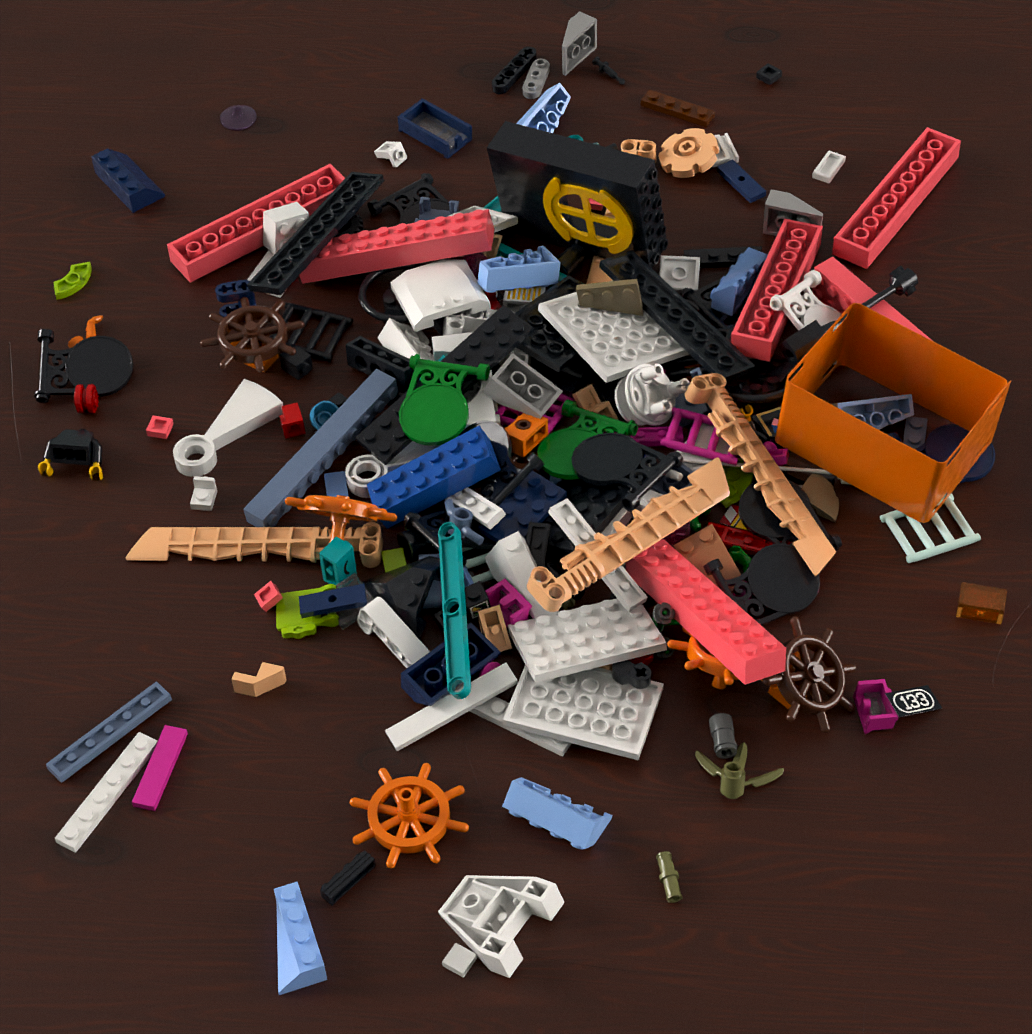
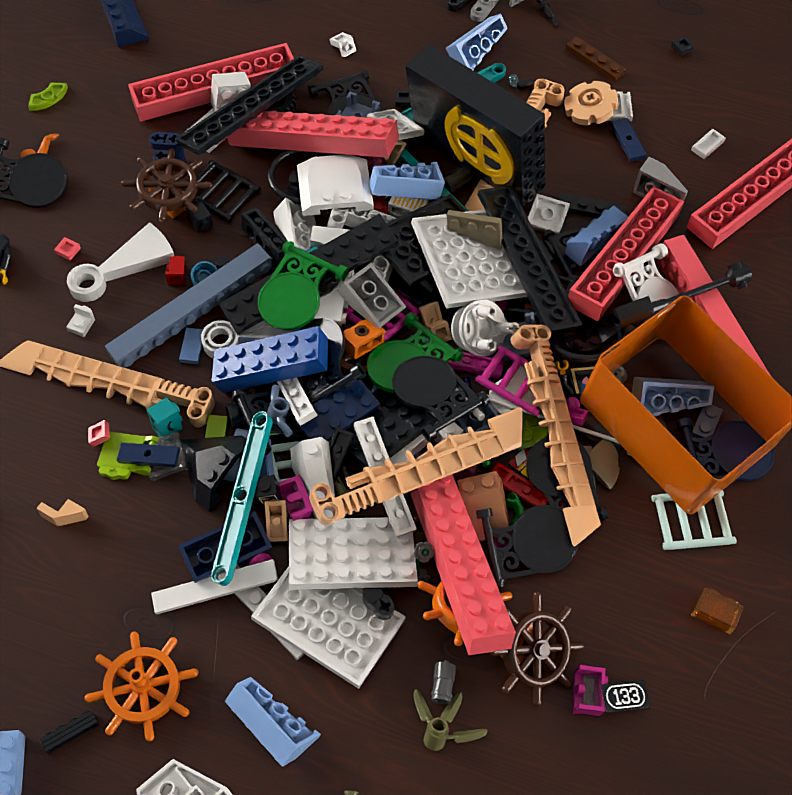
camera: 10 degrees right, 10 degrees up
(86, 398) = (16, 207): red wheel -> none
(341, 511) = (178, 373): orange piece -> none
(388, 626) = (189, 500): white beam -> none
(435, 128) = (386, 29): dark blue door -> none
(479, 194) = (402, 98): none -> black plate

